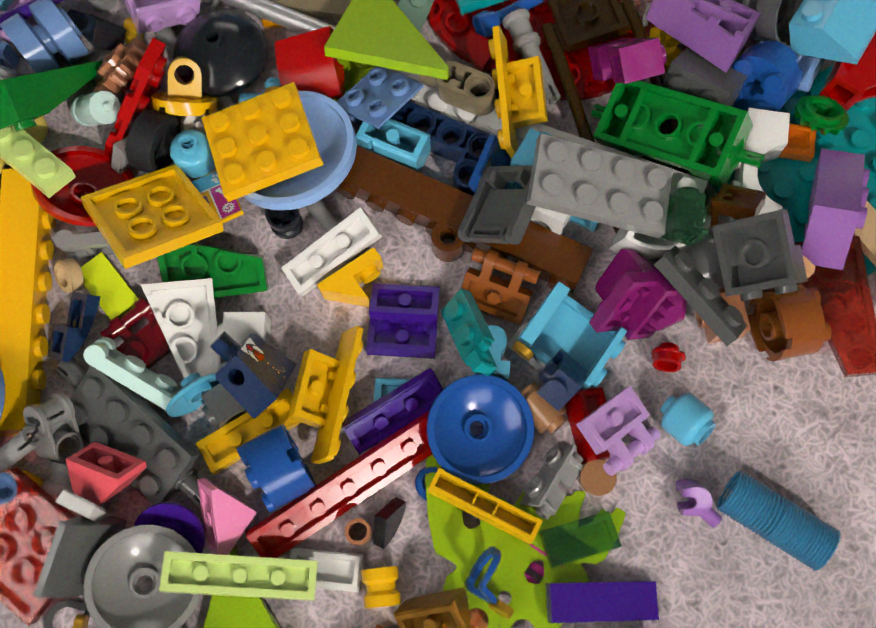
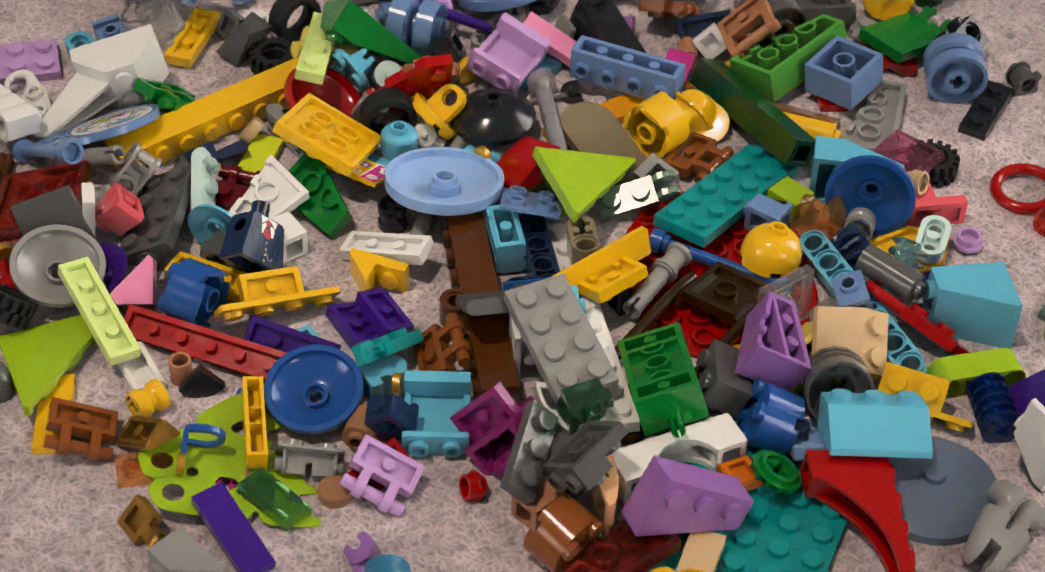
camera: 50 degrees right, 30 degrees down
(66, 131) = (354, 68): none -> medium azure plate
(261, 142) = (434, 159): yellow plate -> none
(628, 59) = (692, 311): magenta arch -> none
(687, 419) = (427, 518): medium azure head -> none
(735, 203) = (636, 435): reddish brown bracket -> none

